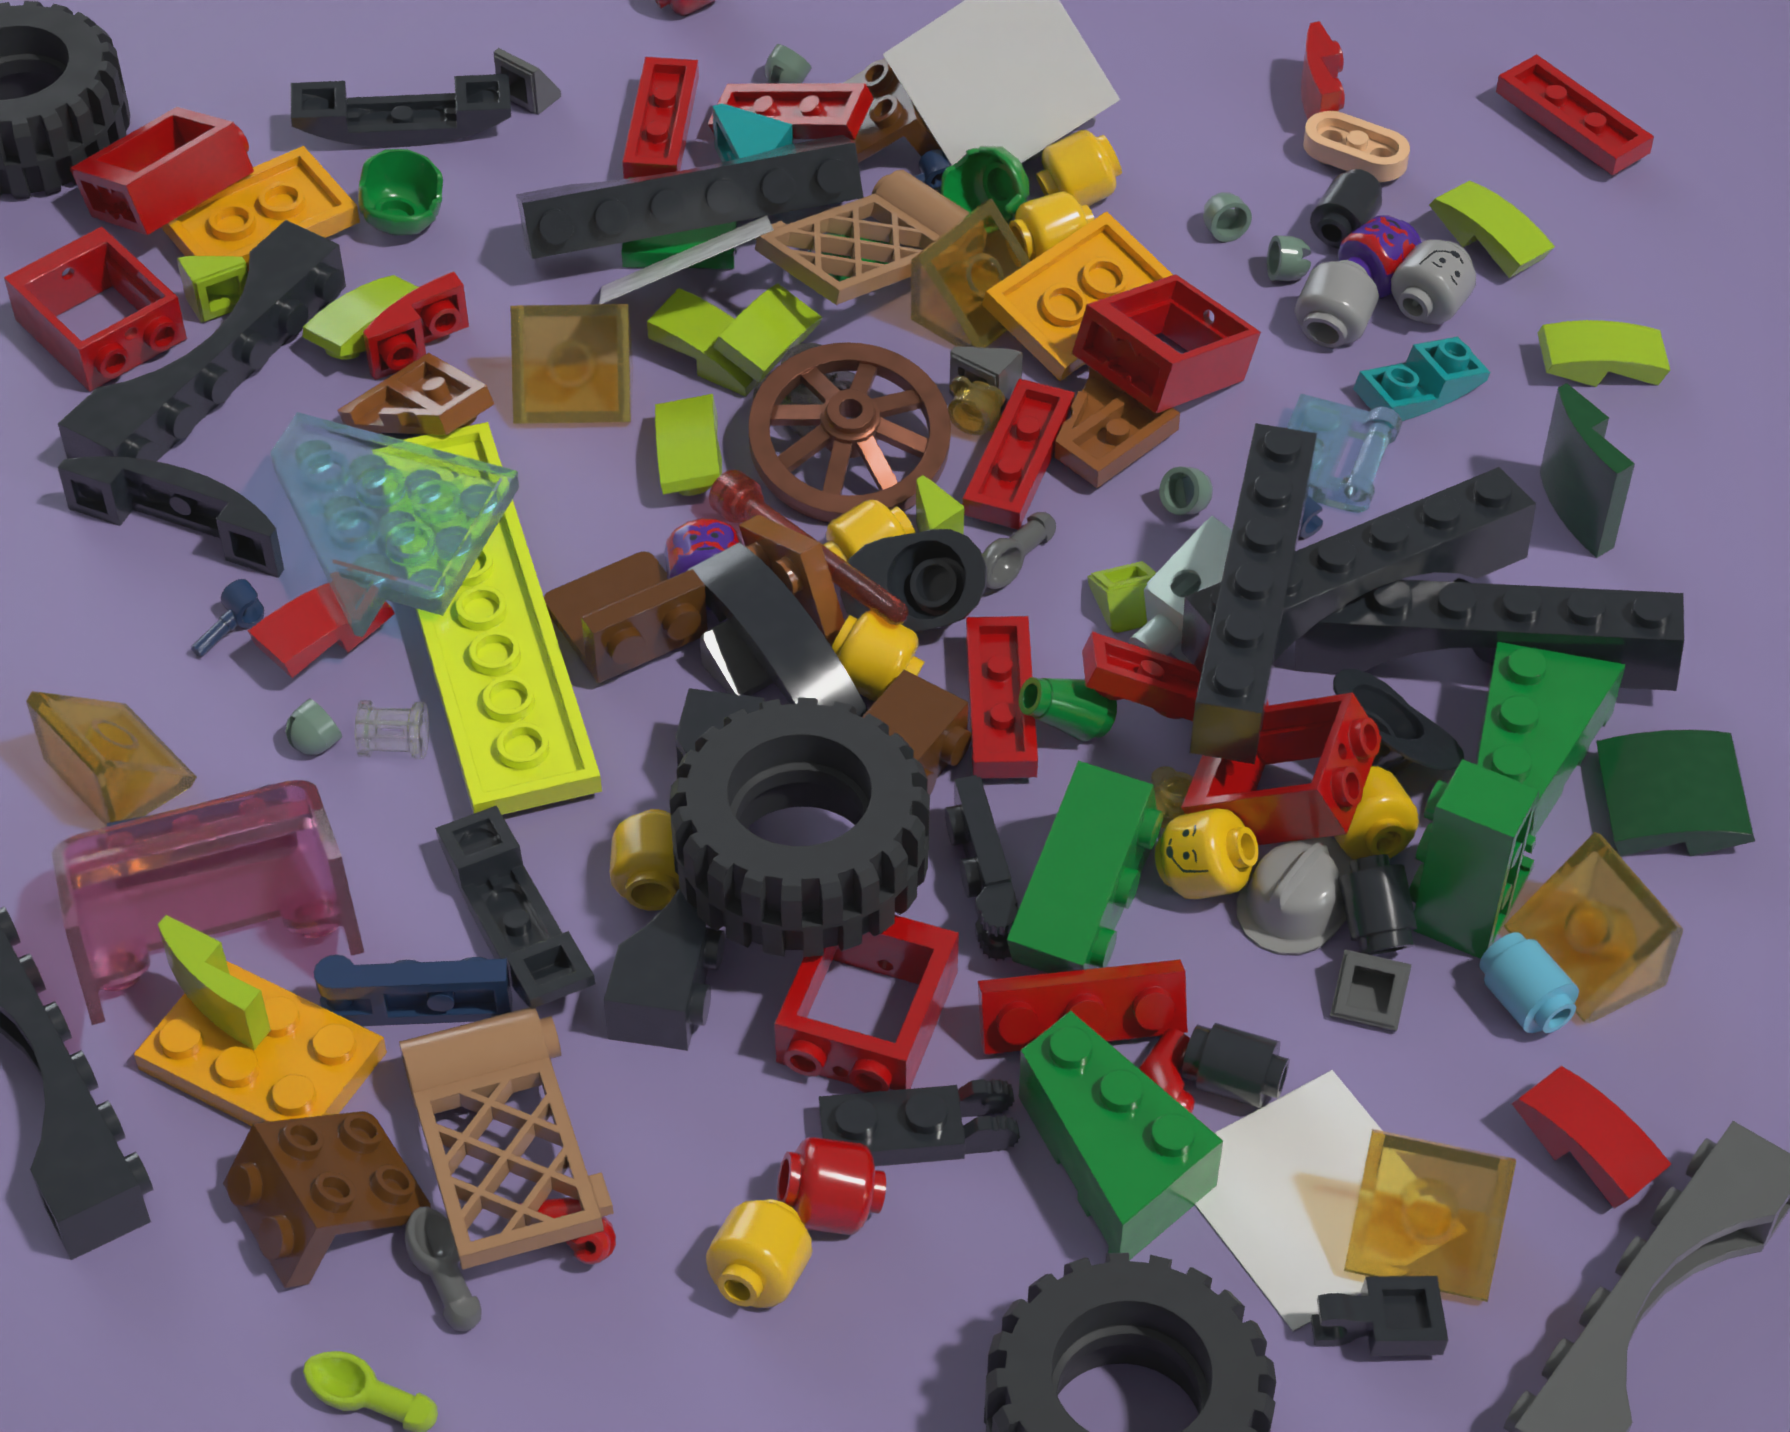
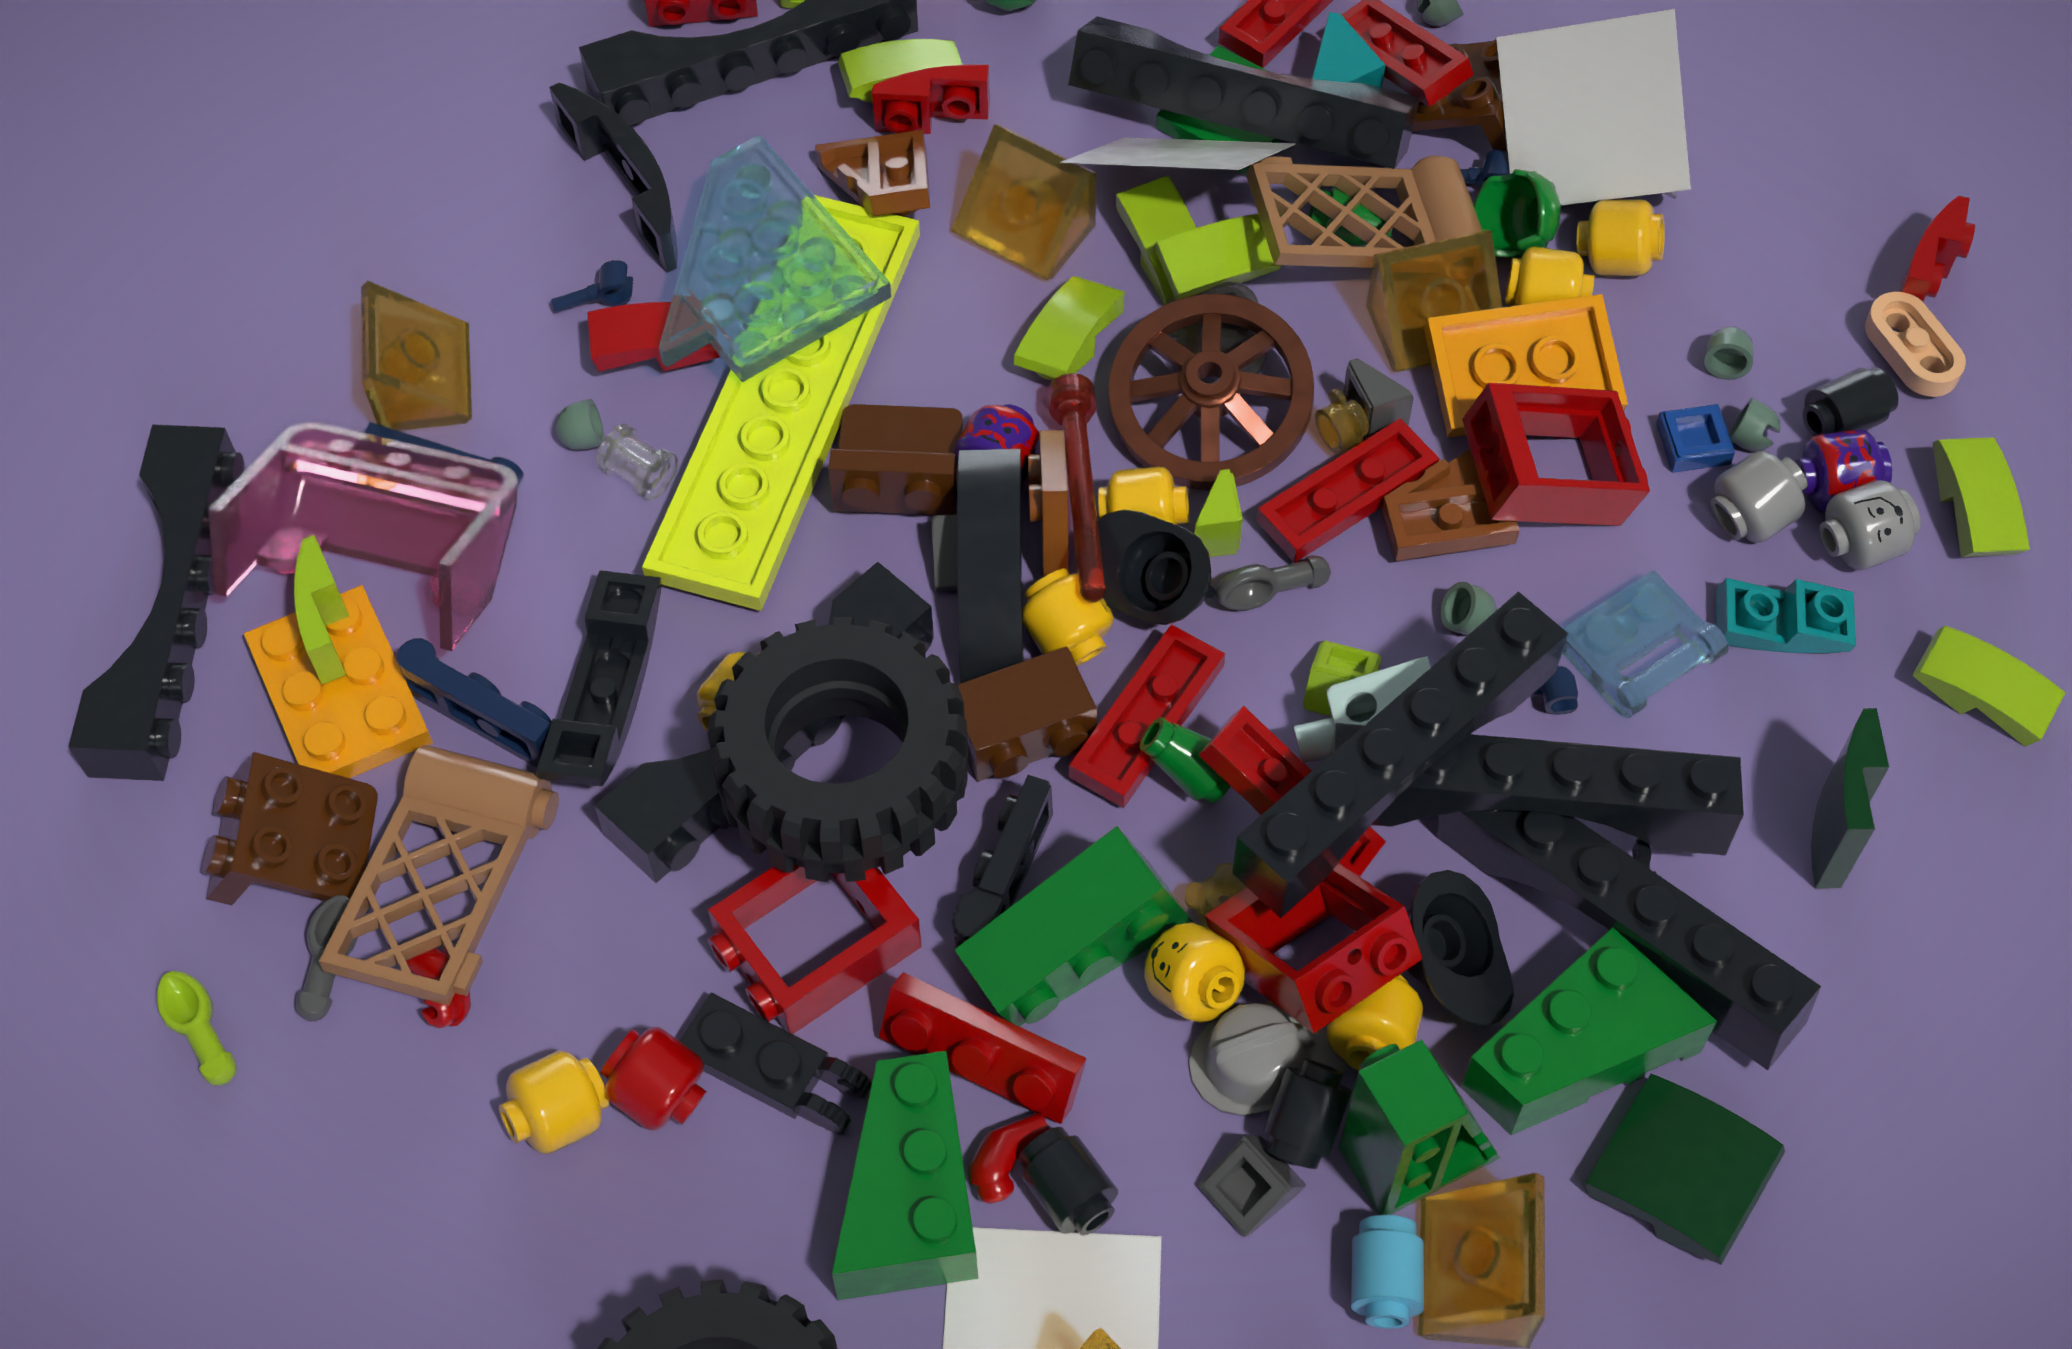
camera: 35 degrees right, 10 degrees up
(1249, 290) = (1695, 438): none -> blue tile

